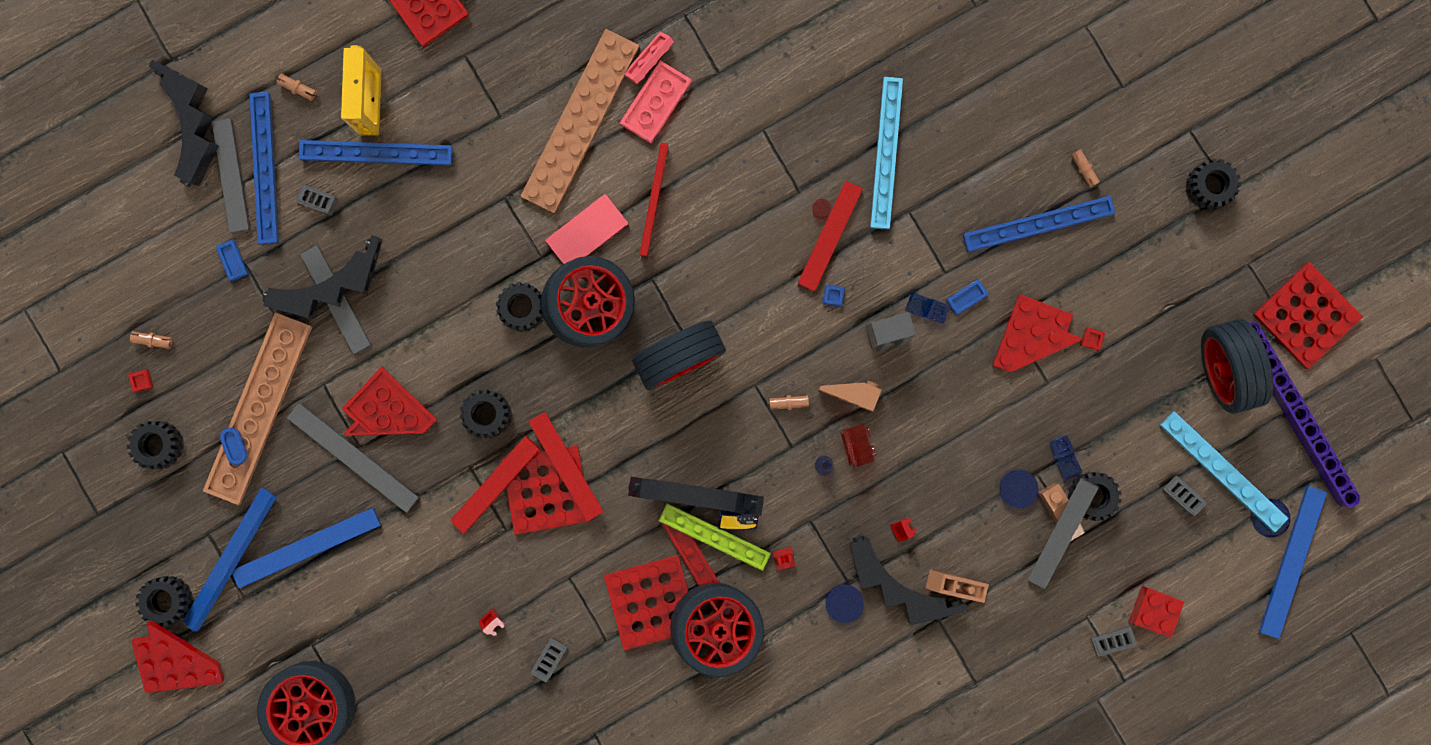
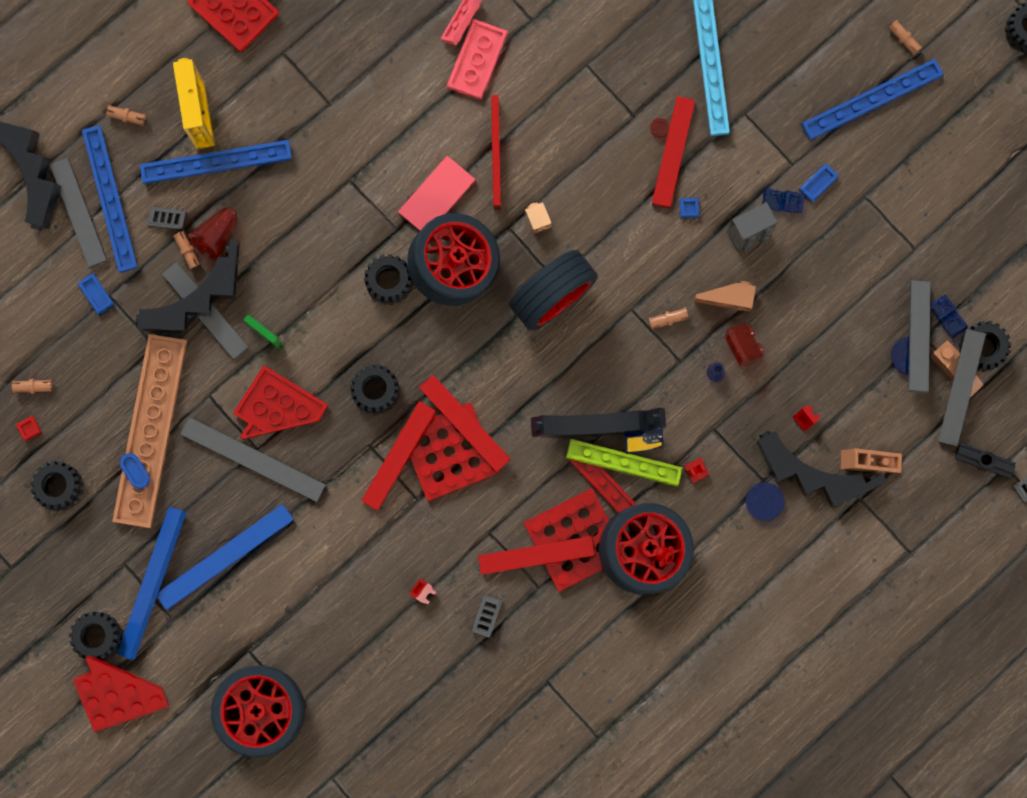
camera: 10 degrees left, 5 degrees down
(329, 236) = (187, 250): none -> nougat pin
(359, 224) = (214, 233): none -> clear red cone
(386, 334) = (263, 332): none -> green tile
(580, 121) = (407, 92): nougat plate -> none
(609, 611) = (536, 555): none -> red tile
(681, 274) = (538, 217): none -> light nougat brick
(733, 643) = (665, 555): none -> red plate
(1031, 473) = (919, 337): none -> dark grey tile
(1033, 334) = (890, 204): red wing -> none
(1078, 615) = (996, 464): none -> black piece
(1092, 339) = (949, 198): red tile -> none

